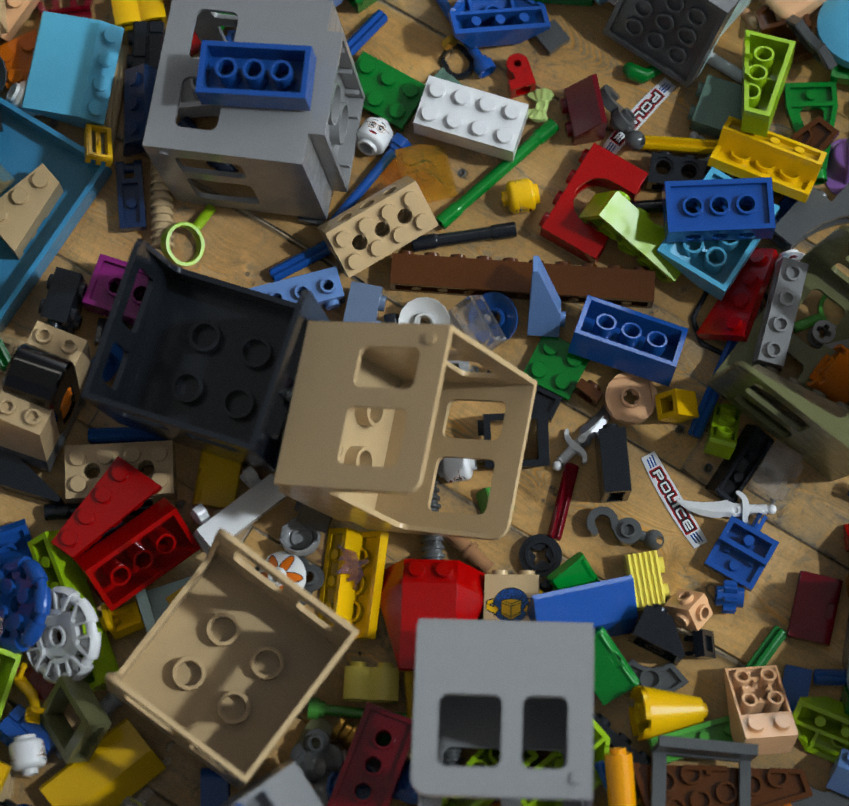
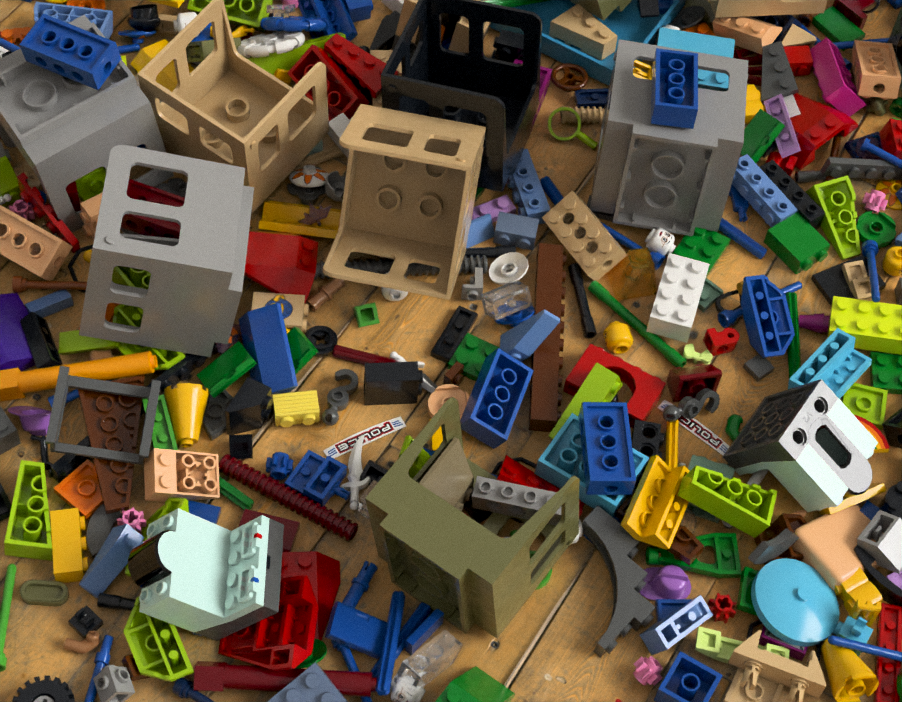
camera: 85 degrees right, 20 degrees down
(103, 243) = (568, 82): none -> reddish brown piece
(542, 437) = (424, 338): black window -> none
(689, 609) = (268, 432): light nougat brick -> none
(768, 586) = (289, 498): none -> dark red piece
(820, 760) = (135, 517): none -> bright pink gear

